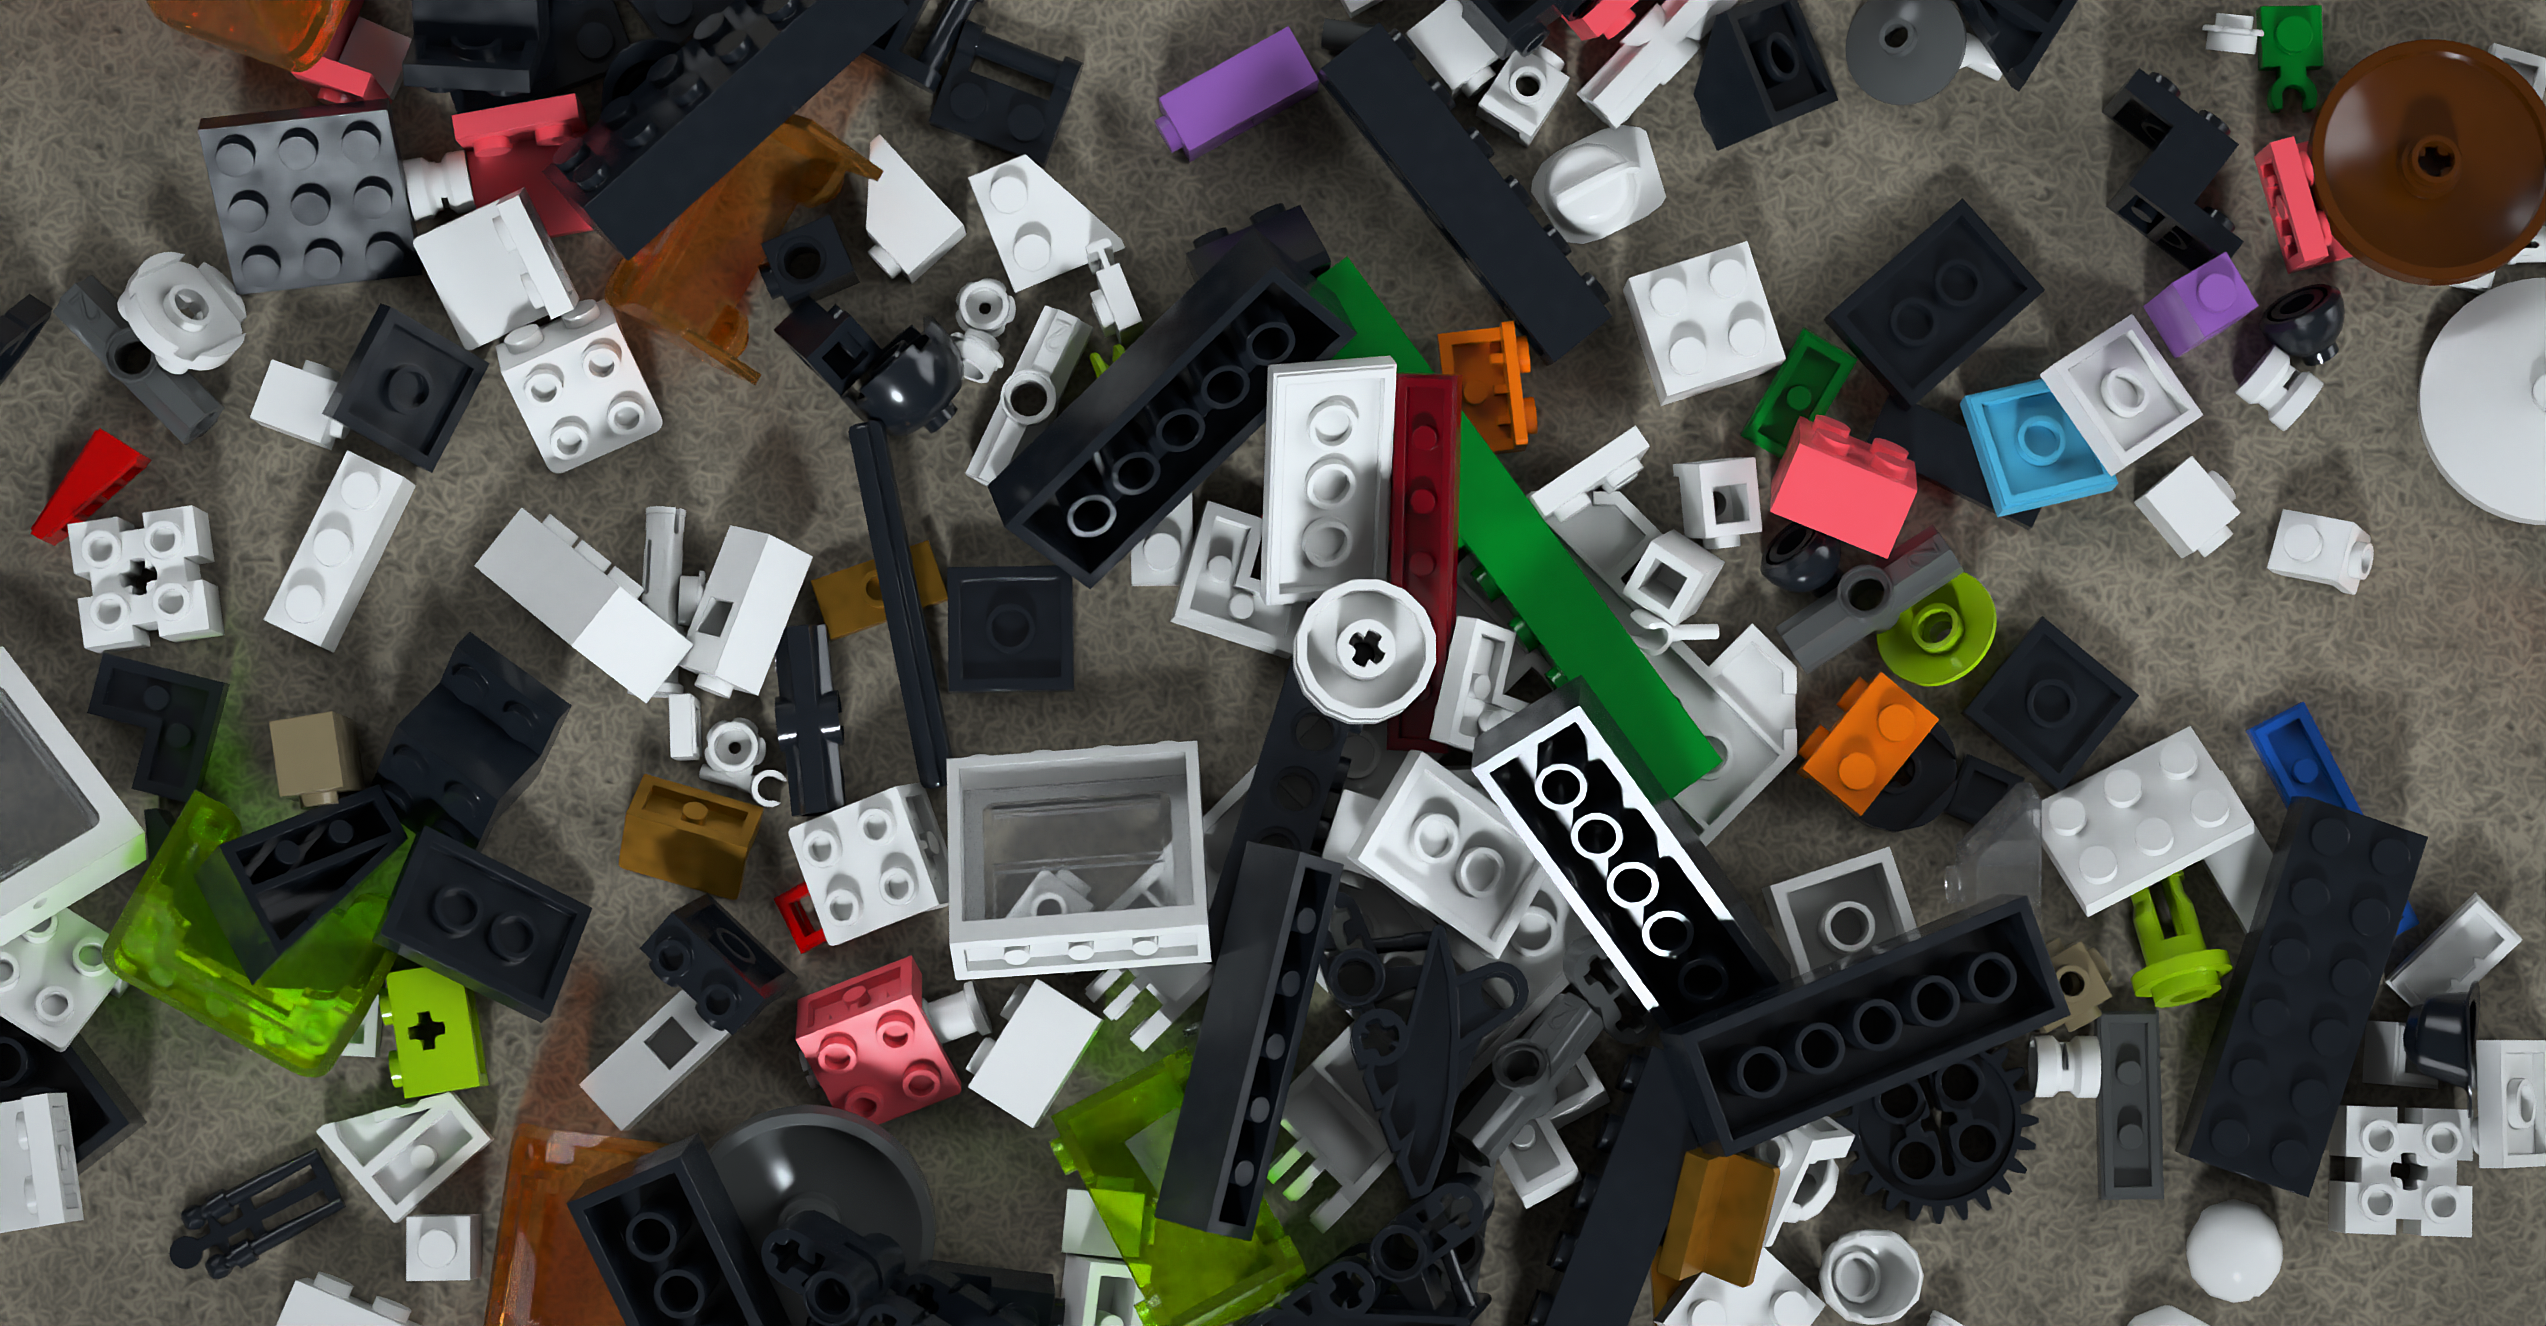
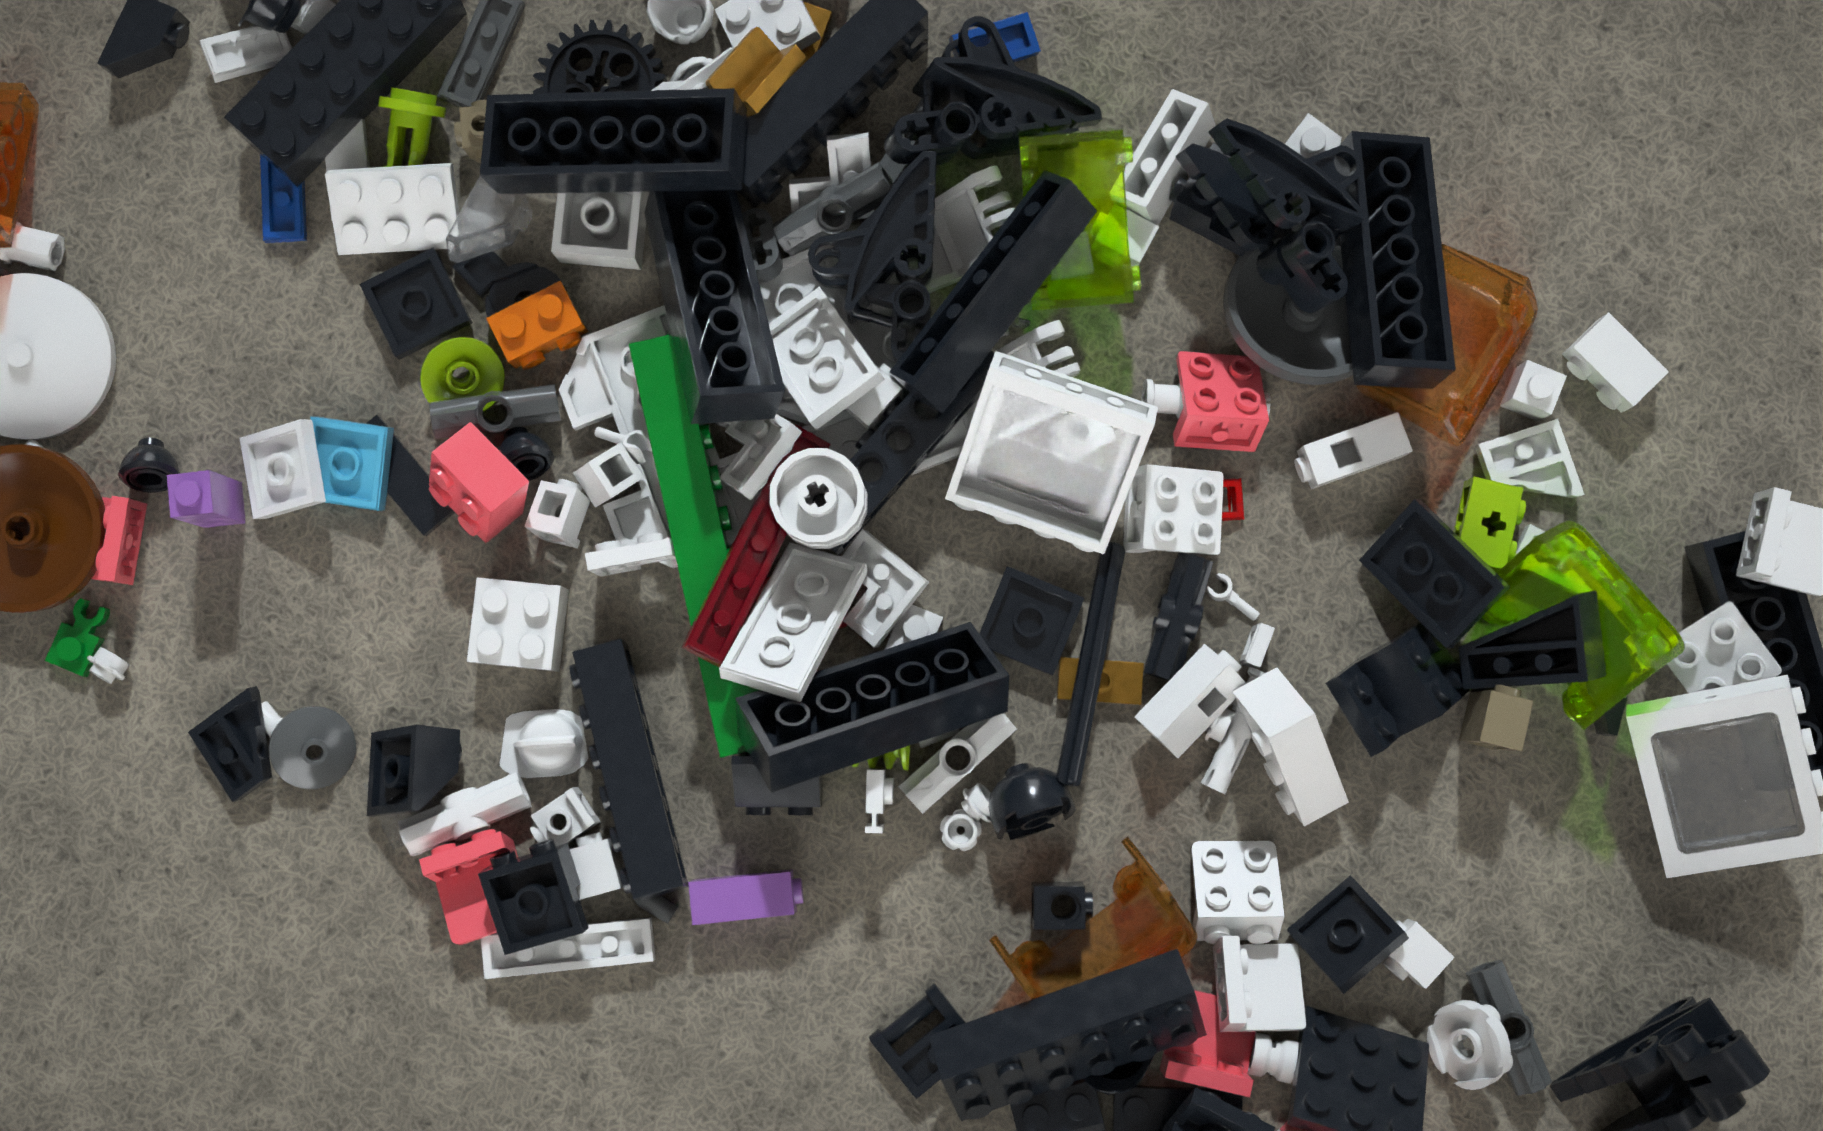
camera: 145 degrees left, 0 degrees up
(93, 479) = (1563, 964): red slope -> none
(175, 604) = (1580, 867): white brick -> none
(179, 715) = (1569, 789): black plate -> none
(188, 1251) = (1687, 458): black piece -> none
(340, 551) = (1429, 847): white brick -> none
(689, 836) = (1280, 579): pearl gold panel -> none
(716, 964) = (1297, 487): black plate -> none
(723, 735) = (1241, 618): white plate -> none
(829, 343) = (1068, 847): black brick -> none
(906, 217) = (986, 908): white slope -> none
(1000, 113) = (899, 952): black plate -> none
(1034, 1051) = (1126, 349): white brick -> none
(1035, 222) = (904, 870): white wing -> none
(1492, 383) = (661, 654): orange bracket -> none
(1800, 387) = (479, 559): green plate -> none
(1934, 305) = (371, 575): black plate -> none
(2064, 1066) = (503, 80): white wheel -> none
(2181, 162) = (183, 591): black bracket -> none
(2190, 508) = (274, 384): white brick -> none
(2279, 388) = (185, 434): white wheel -> none
(2321, 550) = (208, 325): white bracket -> none

